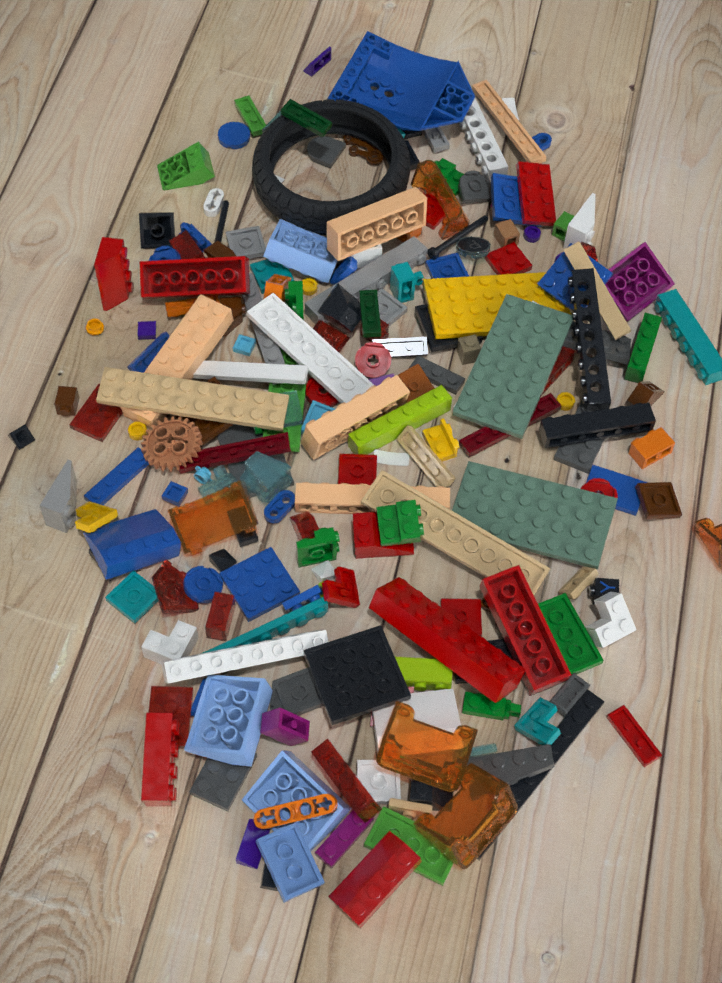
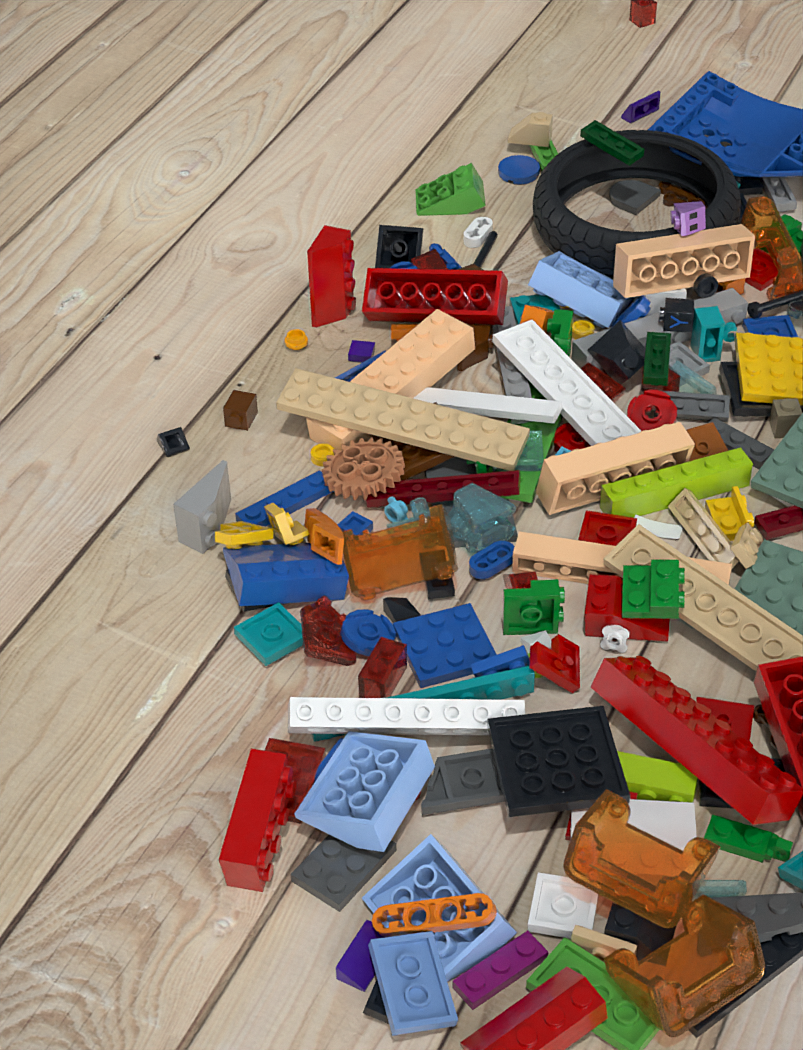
camera: 15 degrees right, 15 degrees down
(96, 419) = (274, 434): clear red plate -> none
(126, 505) = (284, 527): none -> yellow bracket
(157, 511) = (324, 535): none -> orange slope
(179, 643) = (322, 683): white brick -> none
(238, 100) = (533, 130): none -> tan slope
(244, 345) = (484, 381): medium azure tile -> none
(246, 242) = (516, 271): light grey plate -> none
(285, 726) = (442, 810): magenta brick -> none
(346, 780) = (516, 892): clear red brick -> none
(376, 189) = (688, 217): none -> medium lavender slope
(377, 560) = (617, 632): none -> white plate
(379, 270) = (677, 315): none -> black brick
(390, 320) = (693, 379): none -> clear light blue tile
(395, 239) = (705, 285): none -> black tile
(457, 468) = (746, 545): none -> tan plate

